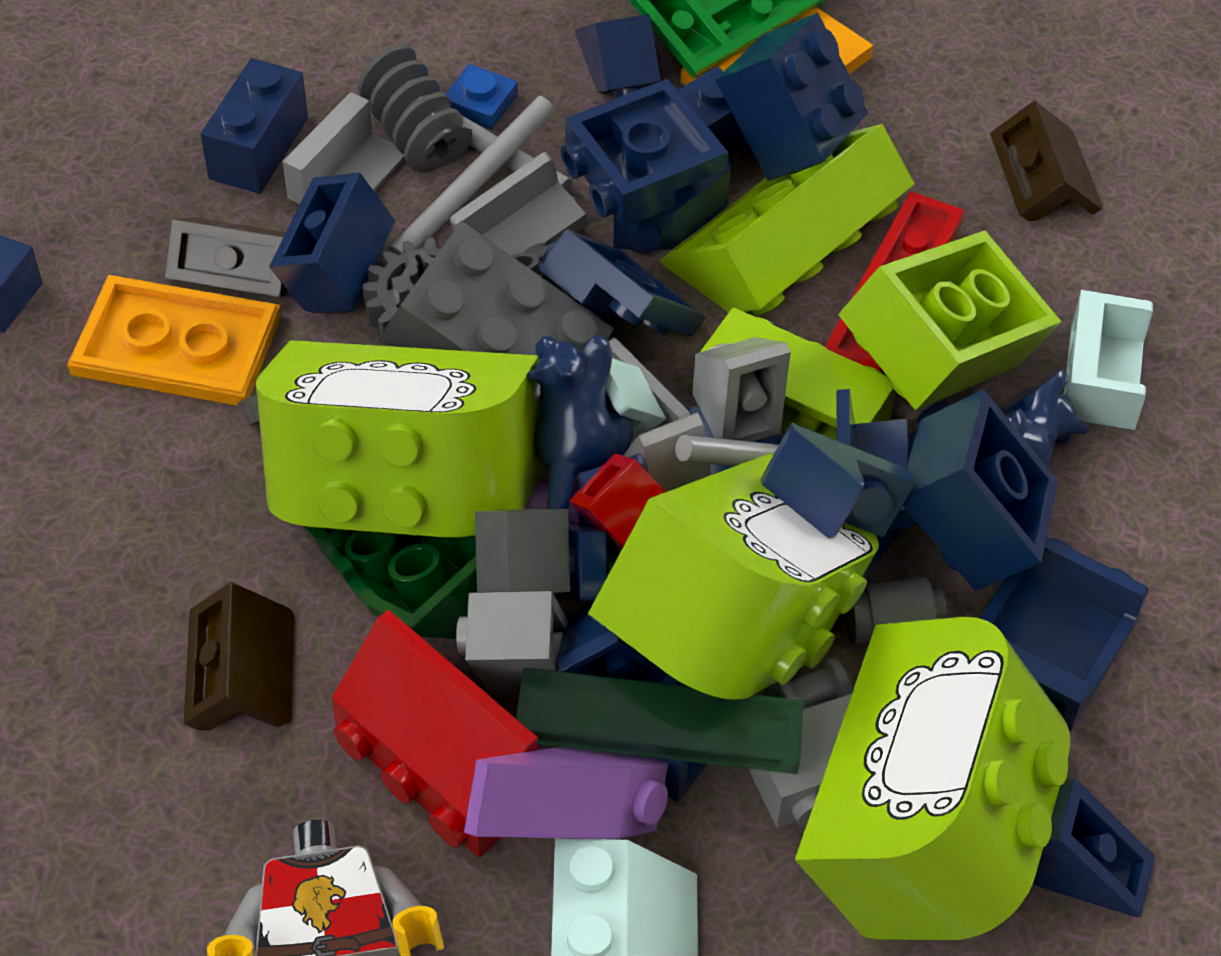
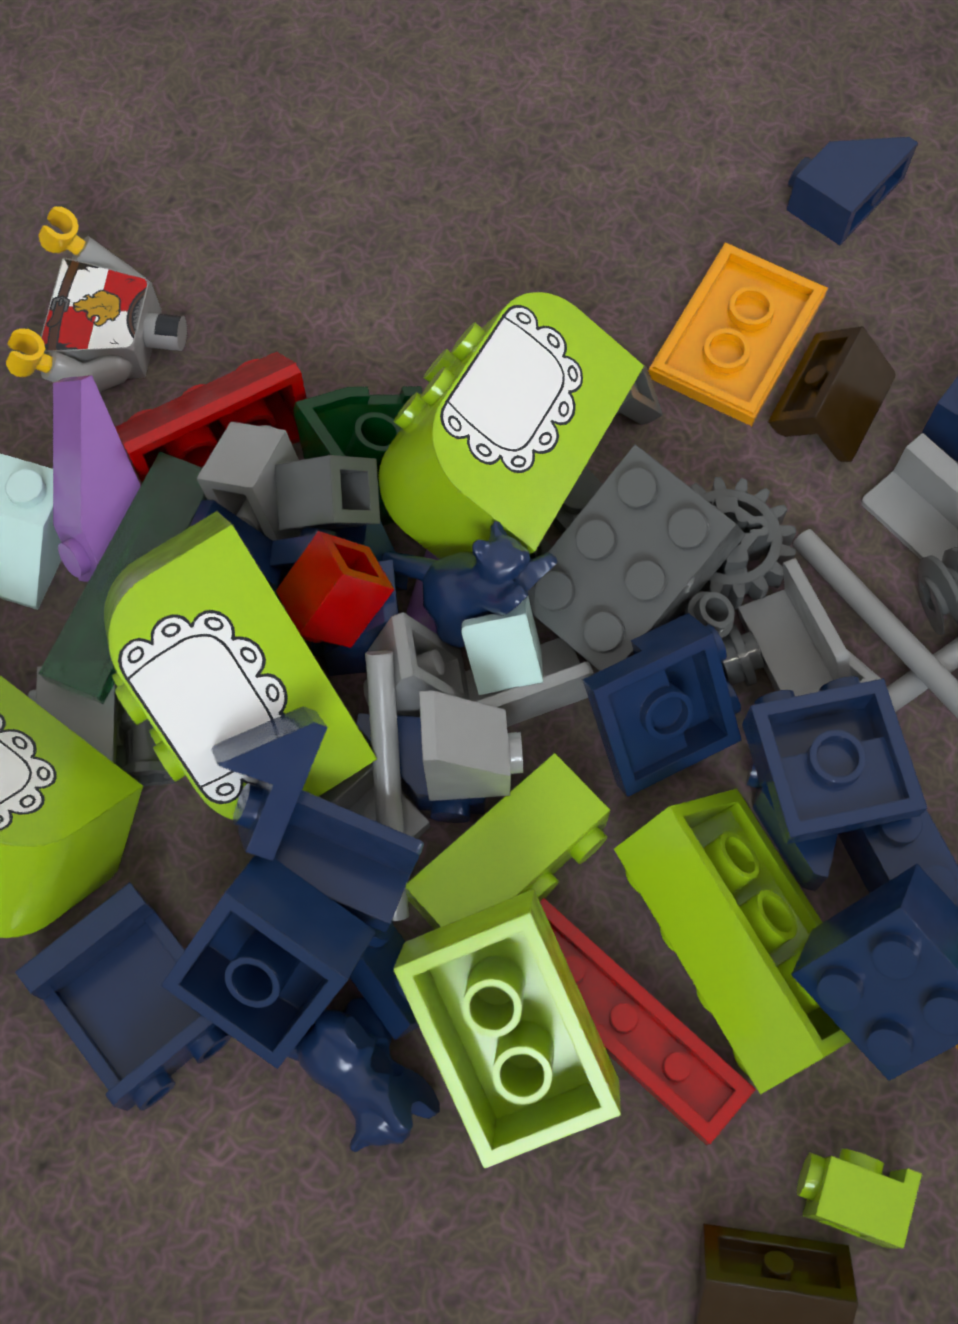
camera: 110 degrees right, 15 degrees up
(238, 659) = (362, 319): dark brown panel -> none
(332, 243) = (804, 461): dark blue brick -> none
(894, 603) = (204, 857): dark grey brick -> none
(956, 122) = (857, 1198): none -> lime brick
(1107, 358) = (442, 1221): light aqua panel -> none

